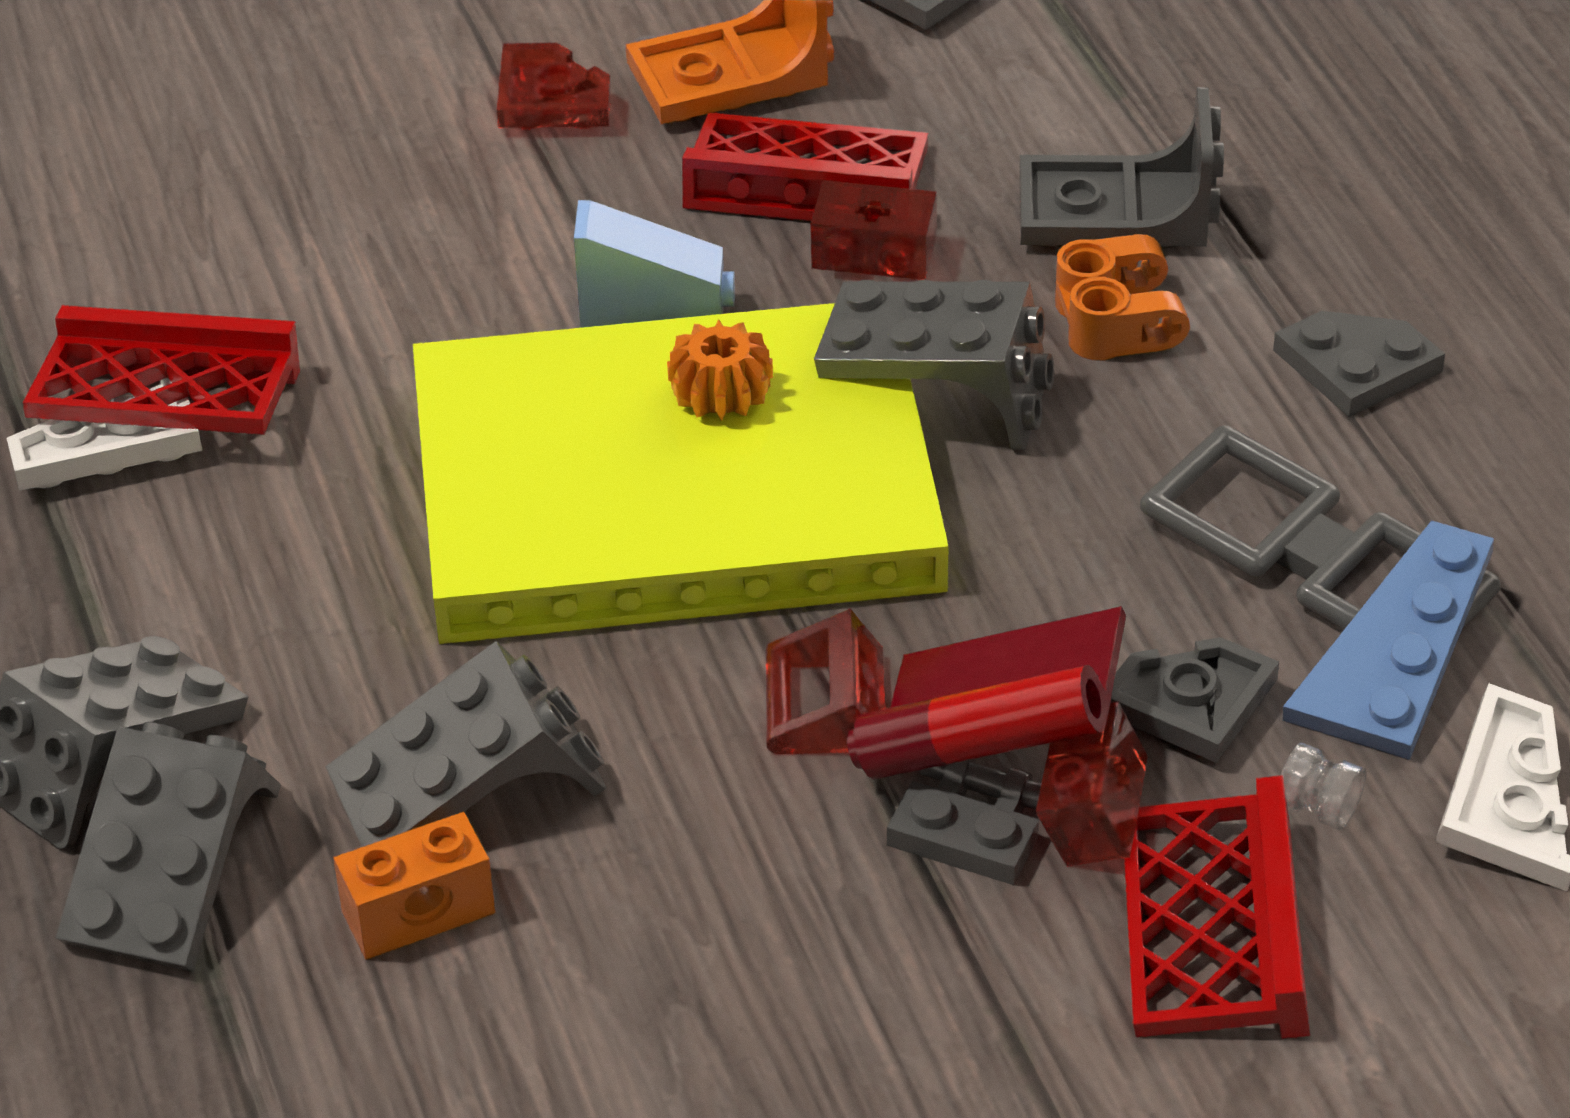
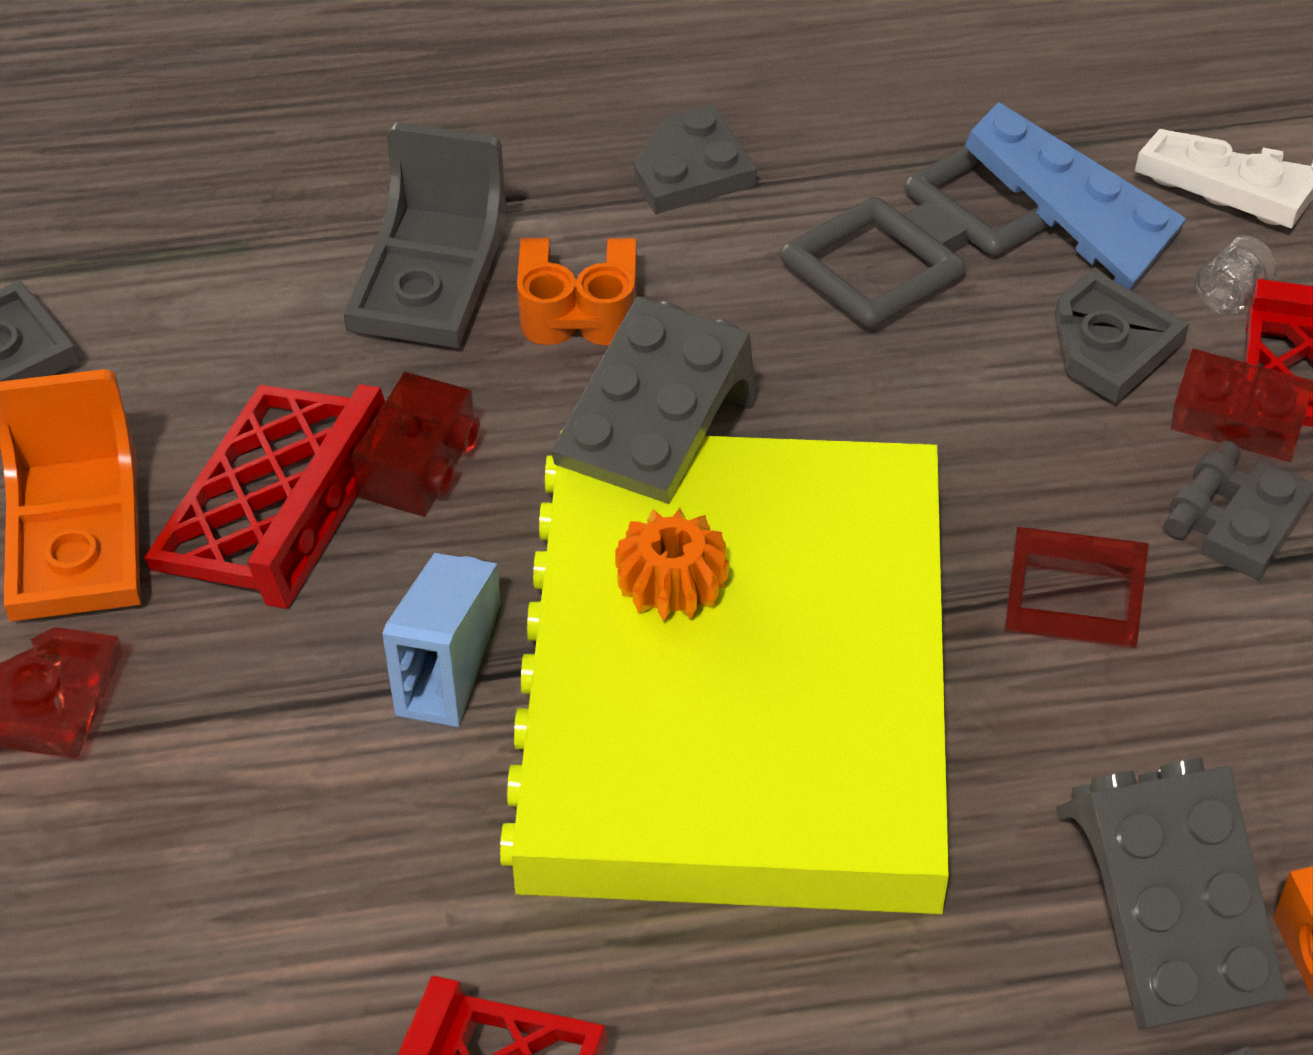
camera: 80 degrees left, 5 degrees up
(993, 696) = (1148, 439): dark red door -> none

